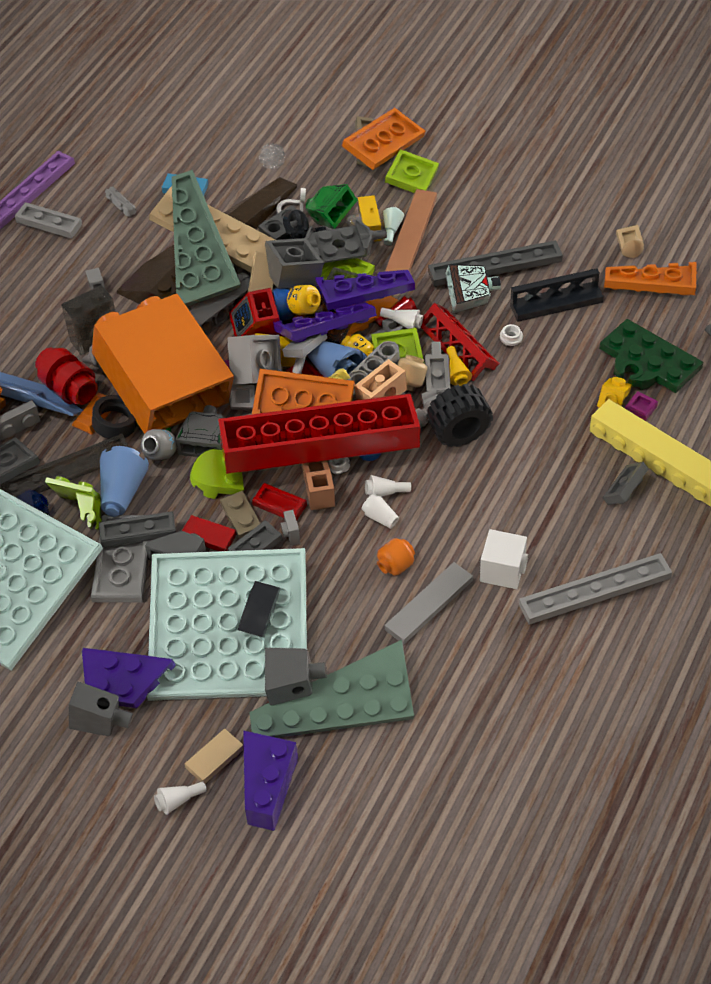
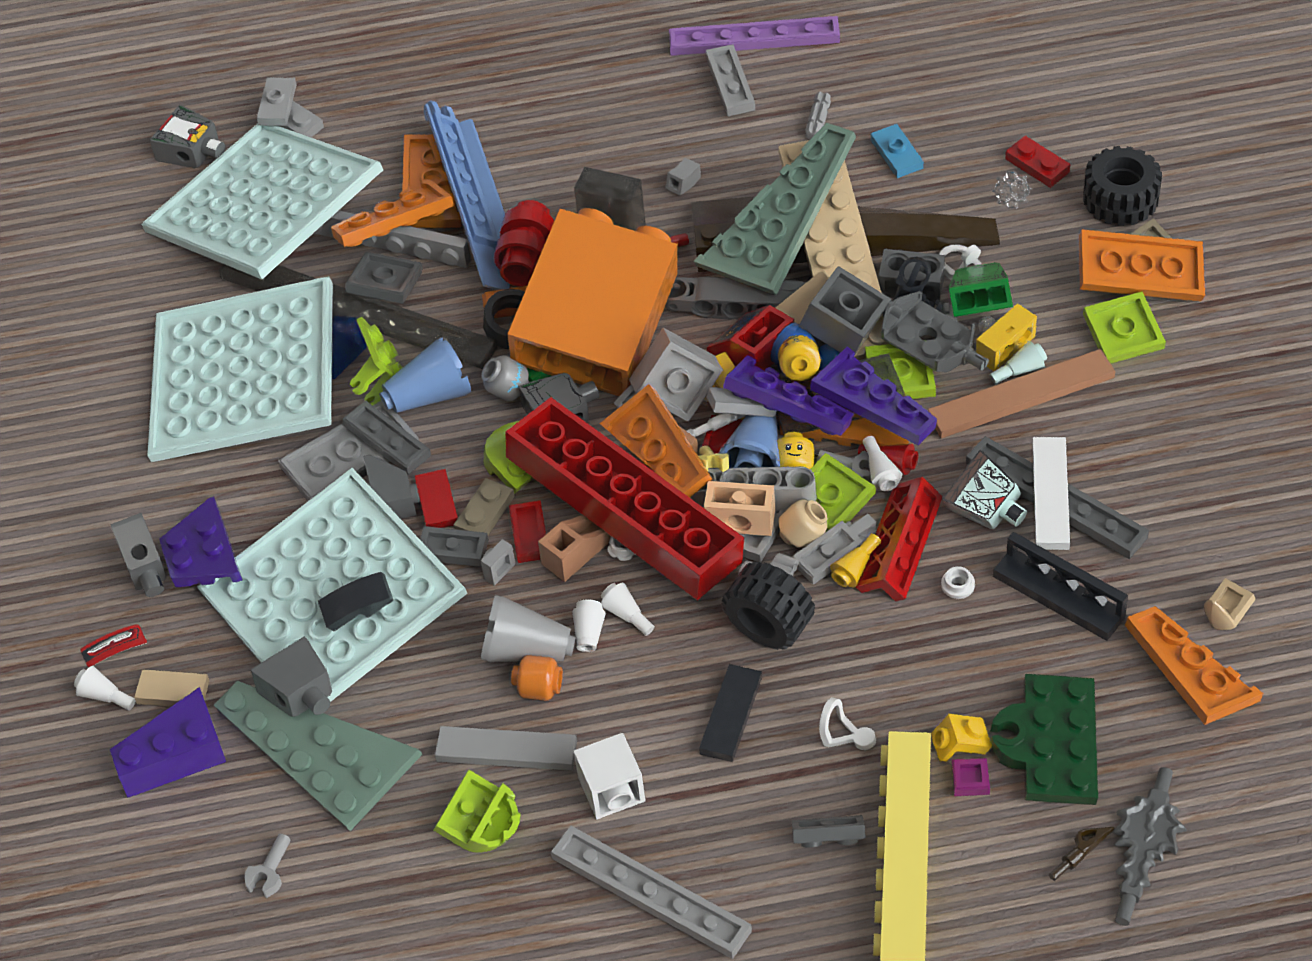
camera: 55 degrees right, 0 degrees up
(141, 773) = (112, 644): none -> sticker
(259, 137) = (1037, 161): none -> red plate
(320, 114) = (1122, 185): none -> black tyre
(358, 545) = (520, 632): none -> light grey cone
(405, 777) = (267, 869): none -> light grey bar
(468, 640) = (479, 815): none -> lime slope
(495, 260) = (1051, 493): none -> white tile
(503, 483) = (730, 713): none -> black tile
(574, 436) = (863, 738): none -> white piece

